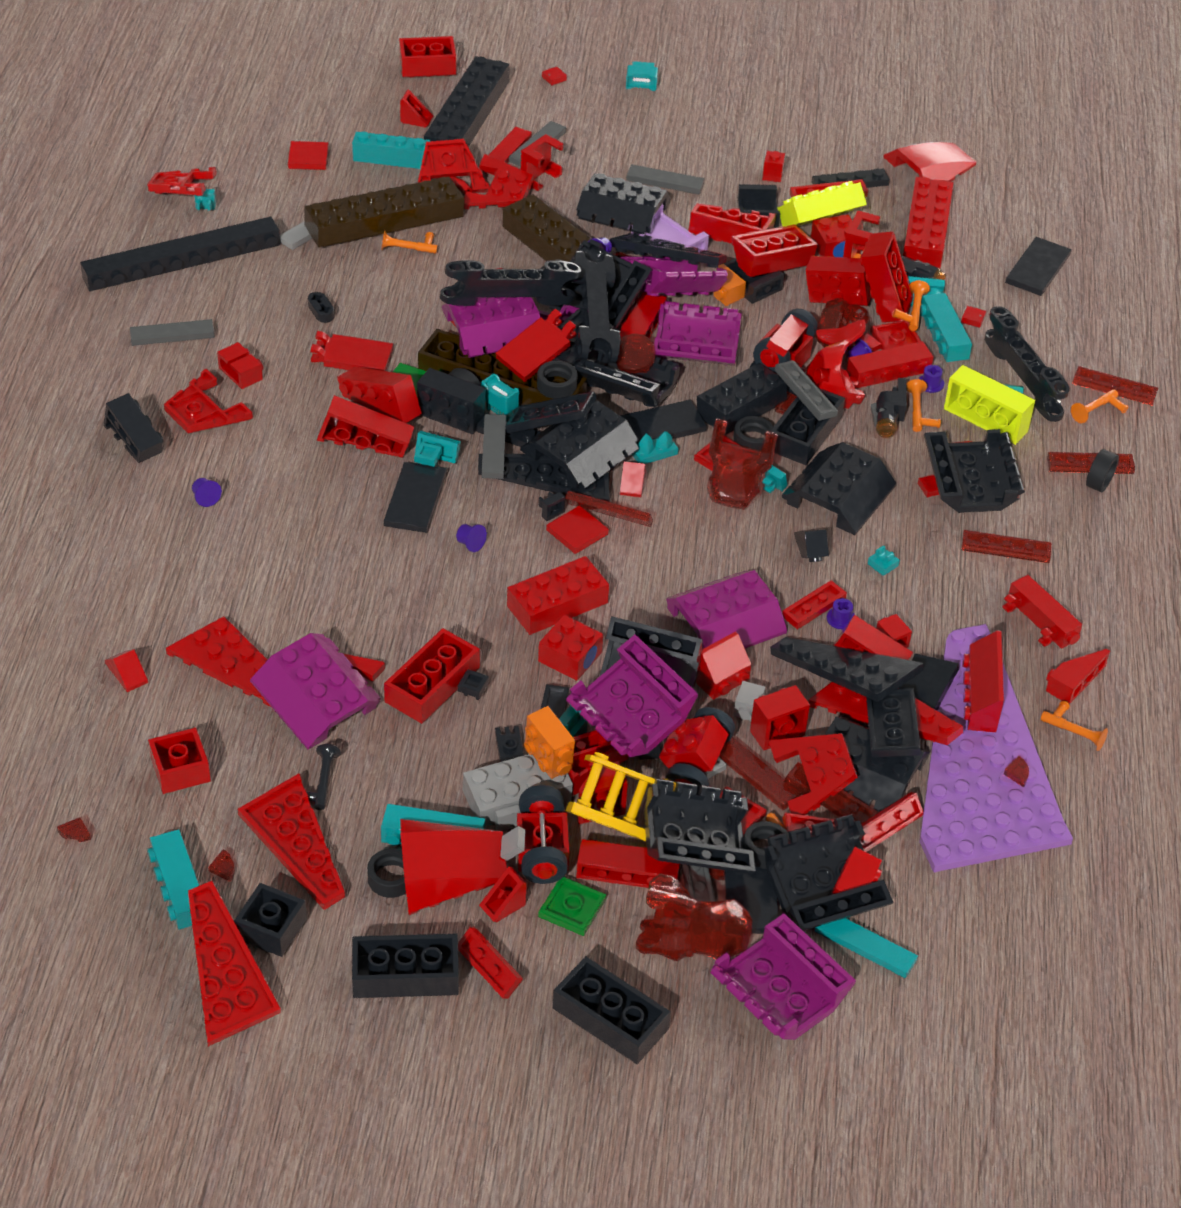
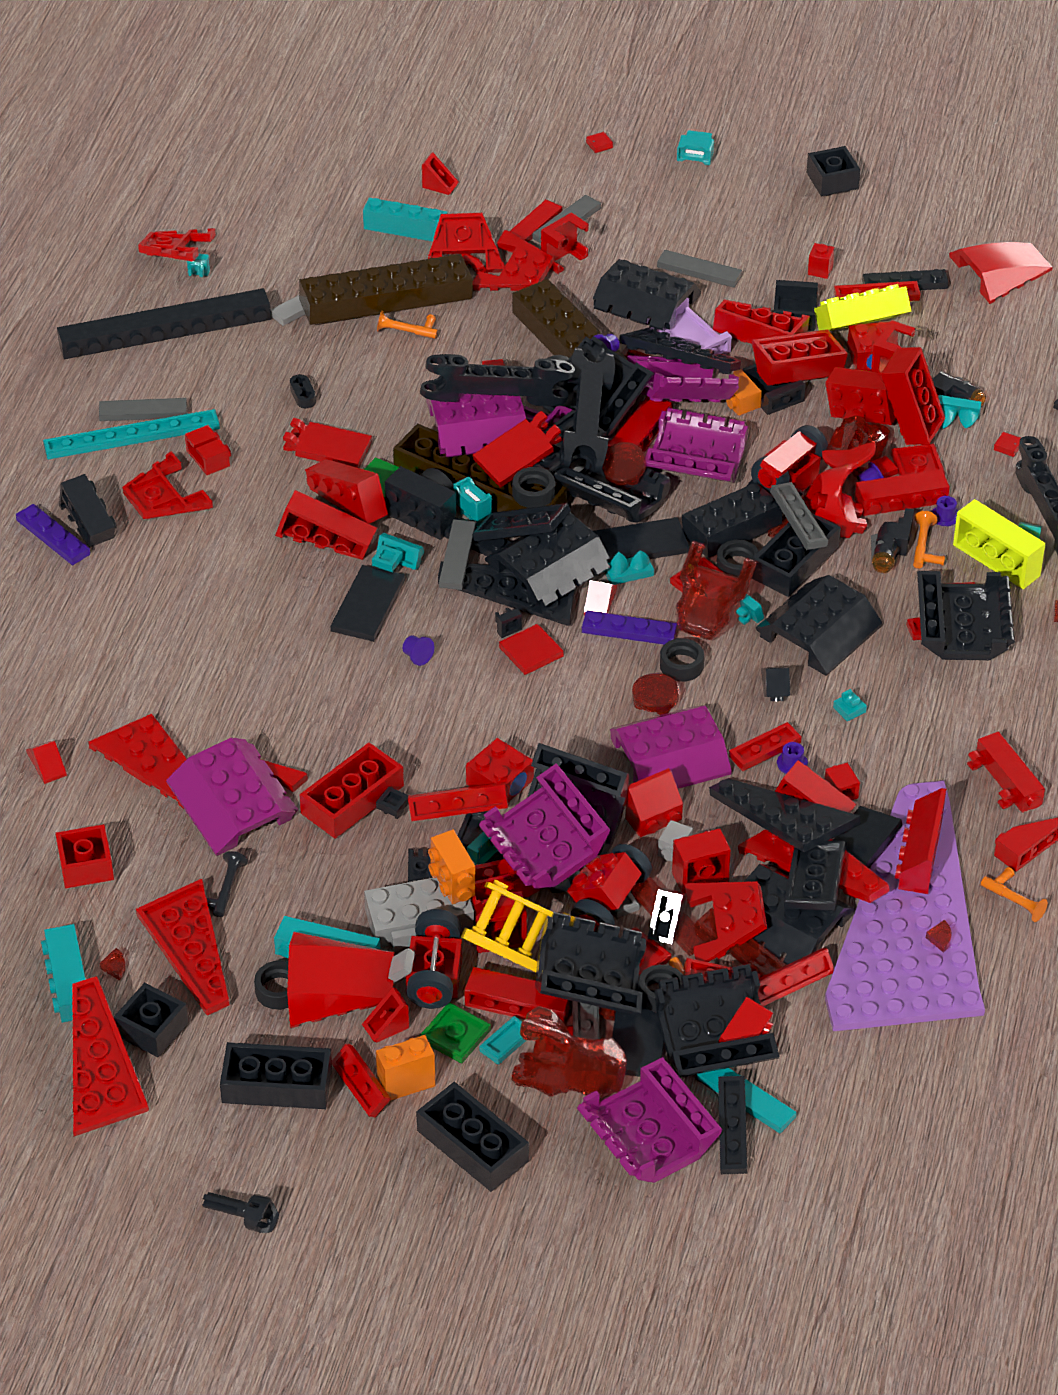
camera: 10 degrees right, 0 degrees up
(102, 453) = (53, 534): none -> dark purple plate
(161, 356) = (129, 434): none -> teal tile
(206, 492) = (152, 583): dark purple piece -> none
(308, 155) = (316, 220): red tile -> none
(405, 1109) = (253, 1211): none -> black piece
(427, 56) = (462, 114): red brick -> none
(470, 101) = (499, 169): black brick -> none
(534, 945) = (406, 1067): none -> orange brick
(536, 678) = (457, 801): none -> red plate
(557, 592) = (498, 713): red brick -> none
(609, 508) = (568, 629): clear red tile -> none
(623, 909) = (503, 1041): none -> teal tile
(666, 503) = (628, 627): none -> dark purple plate
(702, 562) = (655, 693): none -> clear red tile
(723, 518) = (686, 647): none -> black tyre
(757, 773) = (667, 915): none -> slope
(768, 89) = (833, 171): none -> black brick
(860, 966) = (733, 1124): none -> black plate
(918, 288) = (950, 410): orange piece -> none
(928, 220) = (980, 333): red brick -> none
(945, 327) = (972, 454): teal brick -> none
(1006, 546) = (986, 699): clear red tile -> none

